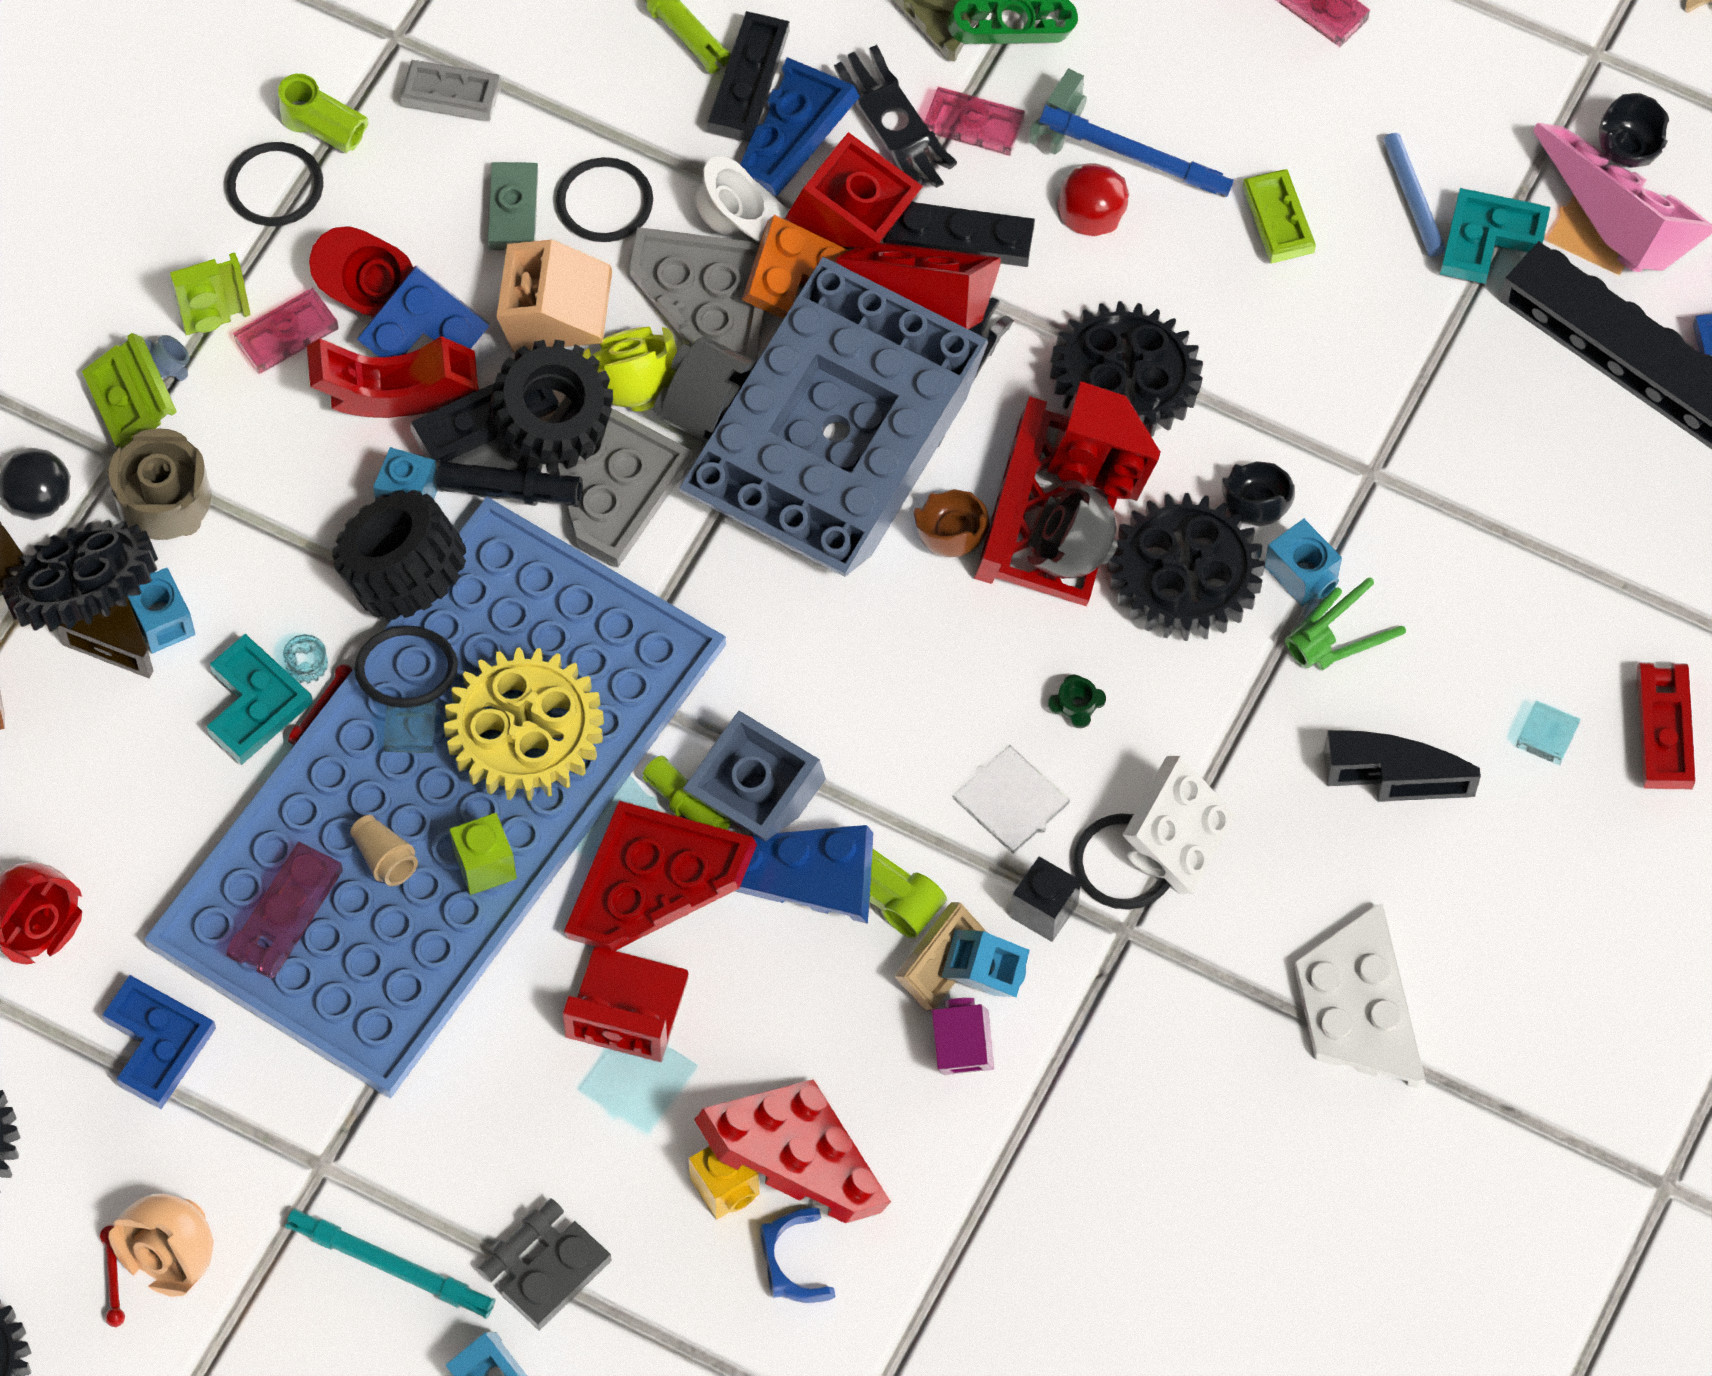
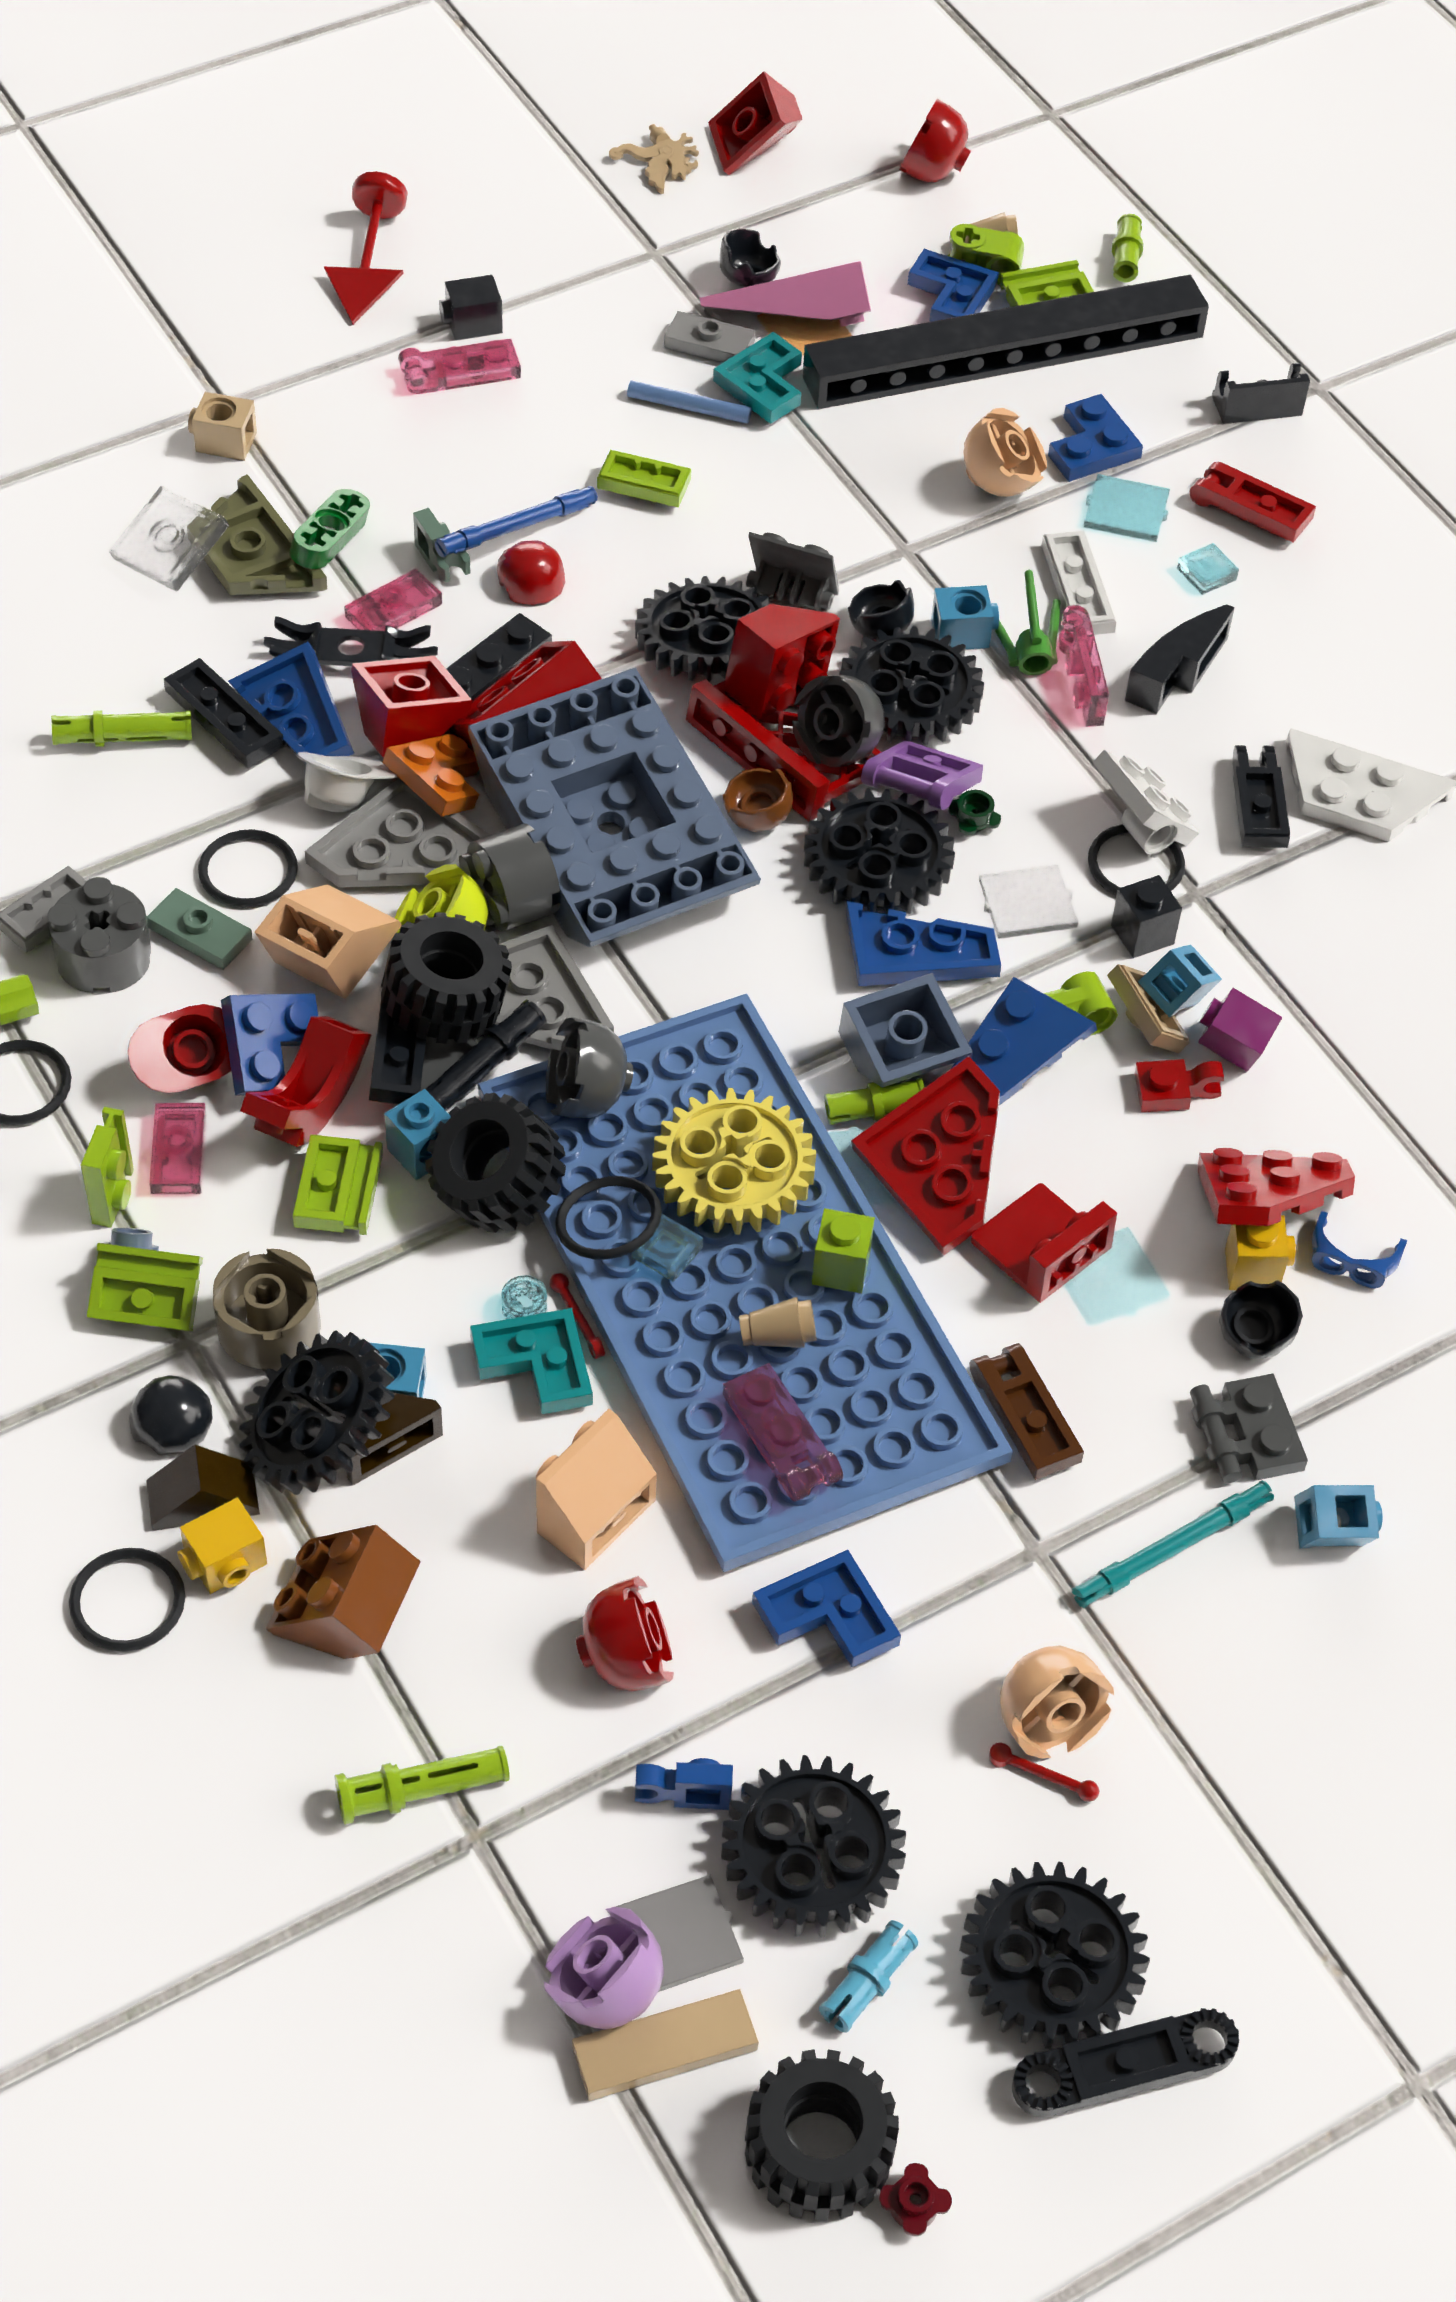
camera: 60 degrees left, 10 degrees down
(140, 807) = (593, 1490): none -> light nougat slope
(323, 461) = (337, 1184): none -> lime plate
(440, 143) = (100, 936): none -> dark grey brick
(443, 1083) = (1027, 1411): none -> reddish brown plate
(532, 565) = (587, 1071): none -> dark grey cylinder
(653, 1214) = (1260, 1319): none -> black hair
(876, 736) = (902, 949): none -> blue wing
(878, 1018) = (1169, 1087): none -> red plate
(950, 685) = (879, 851): none -> black gear
(1092, 629) = (922, 773): none -> medium lavender plate
(1239, 396) = (787, 562): none -> dark grey hinge
(1272, 922) = (1260, 800): none -> black hinge
(1321, 693) = (1084, 663): none -> clear pink plate
(1439, 634) = (1078, 577): none -> white tile
(1511, 160) = (707, 337): none -> light grey plate
(1533, 482) = (1002, 455): none -> light nougat cylinder
(1577, 623) = (1126, 508): none -> clear light blue piece
(1646, 559) = (1099, 441): none -> blue plate

